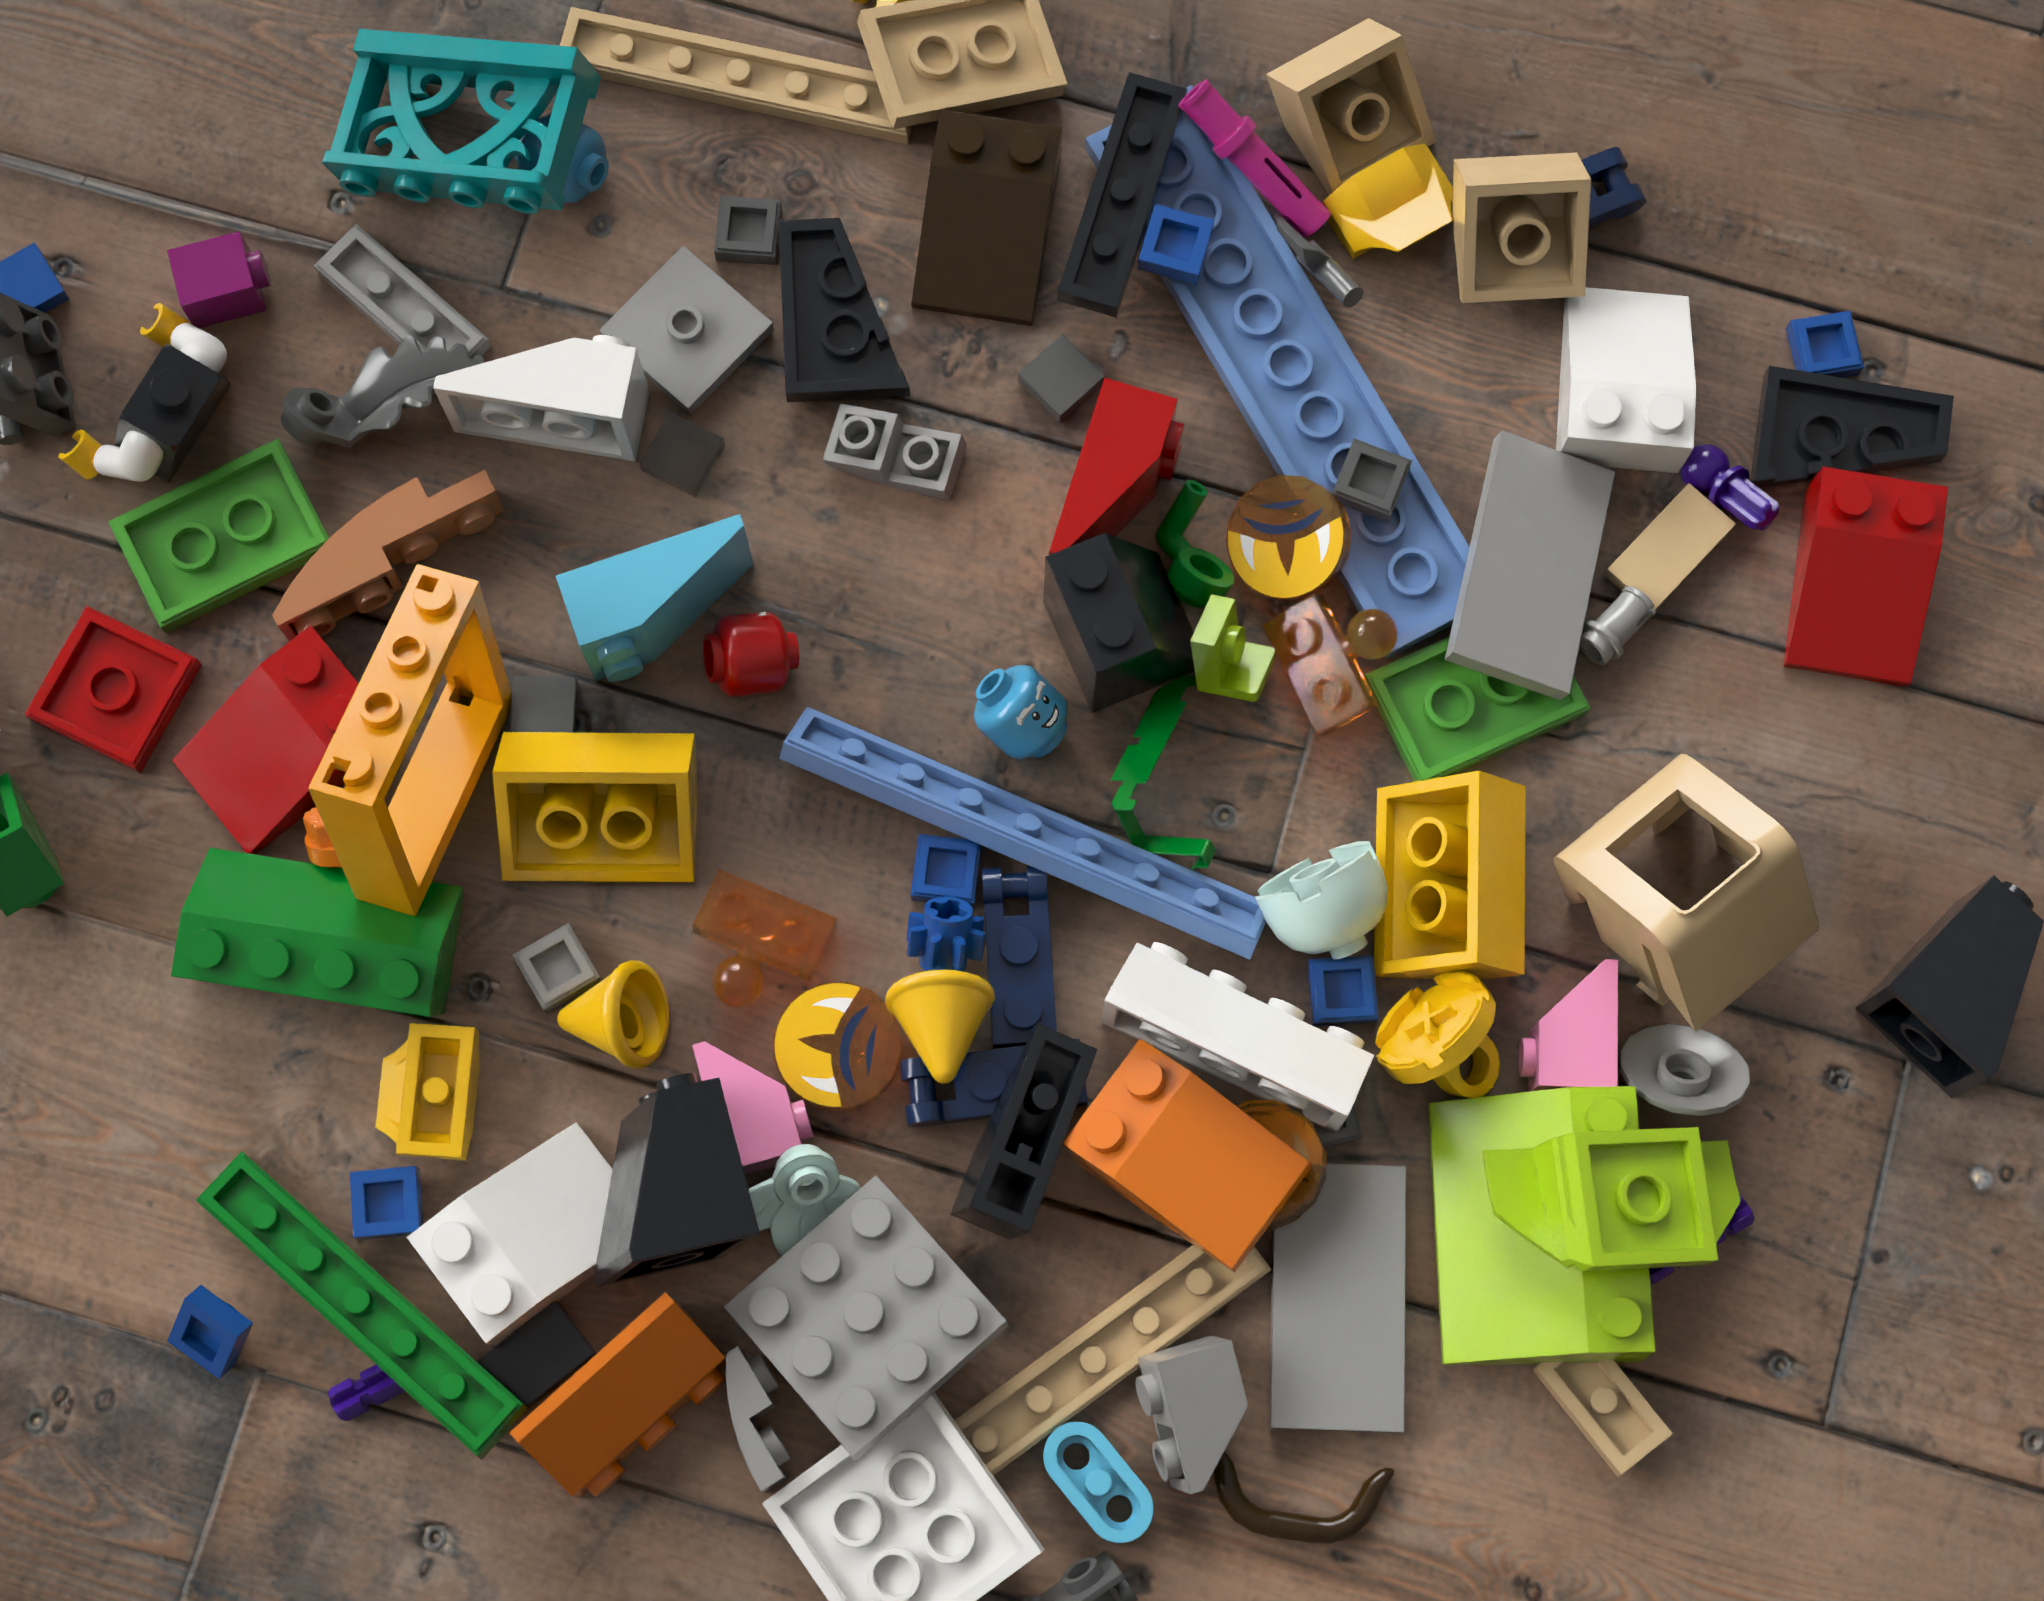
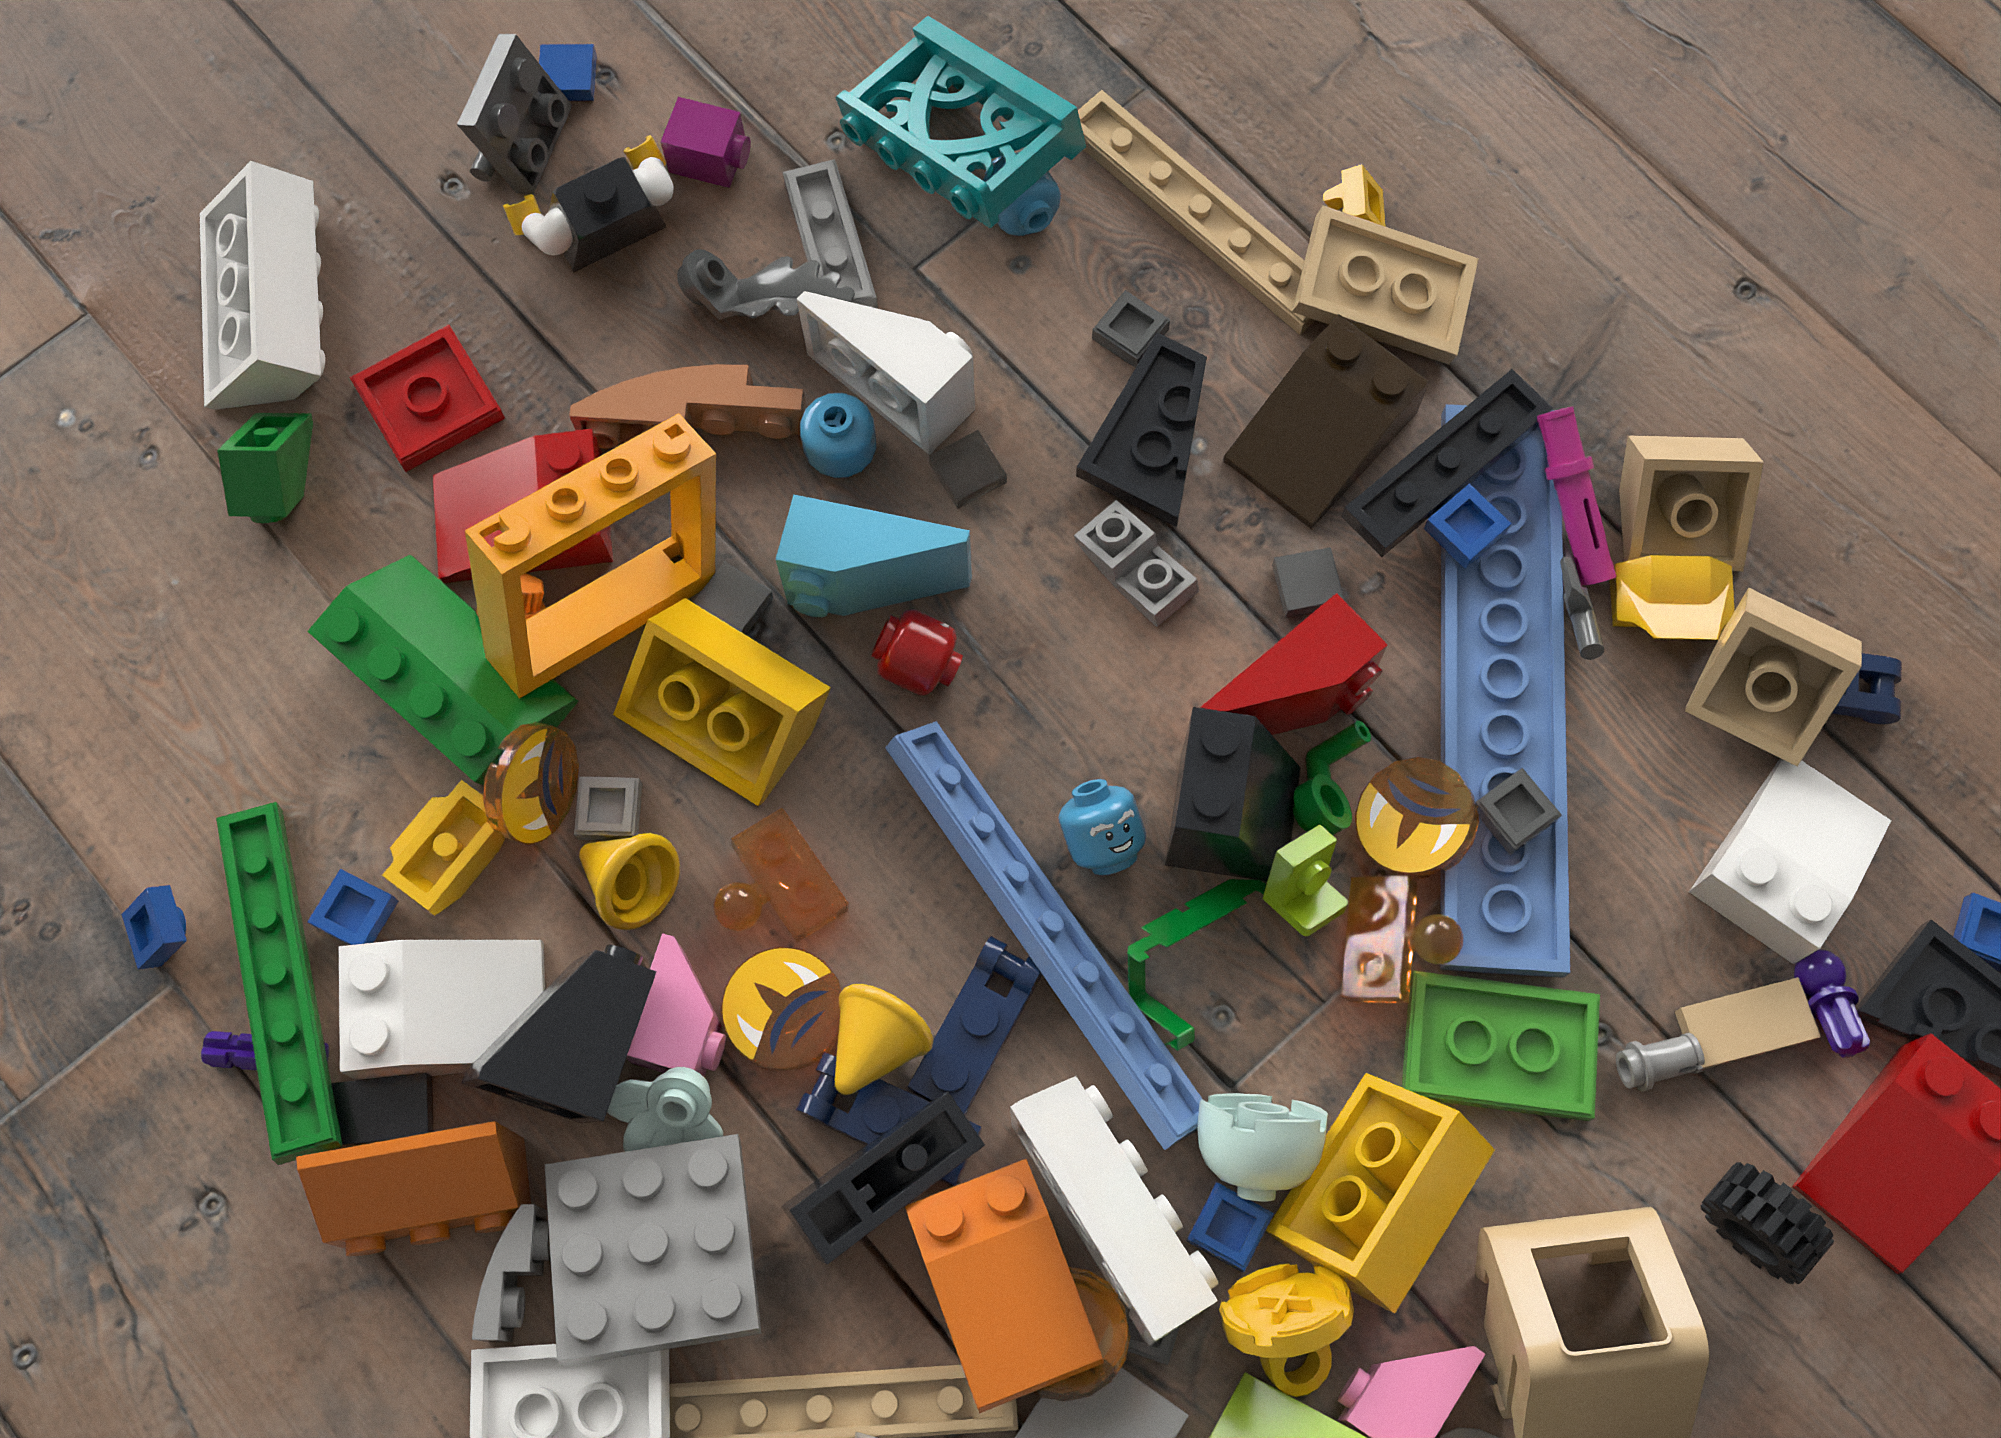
camera: 35 degrees right, 5 degrees down
(220, 535) = (581, 329): bright green tile -> none
(481, 987) = (532, 783): none -> tile
(544, 493) = (838, 435): none -> dark azure head
(689, 329) = (1034, 377): light grey plate -> none
(945, 868) = (962, 920): blue tile -> none
(945, 935) = (925, 972): blue gear -> none
(1530, 566) = (1613, 965): light grey tile -> none
(1780, 708) = (1767, 1222): none -> black tyre

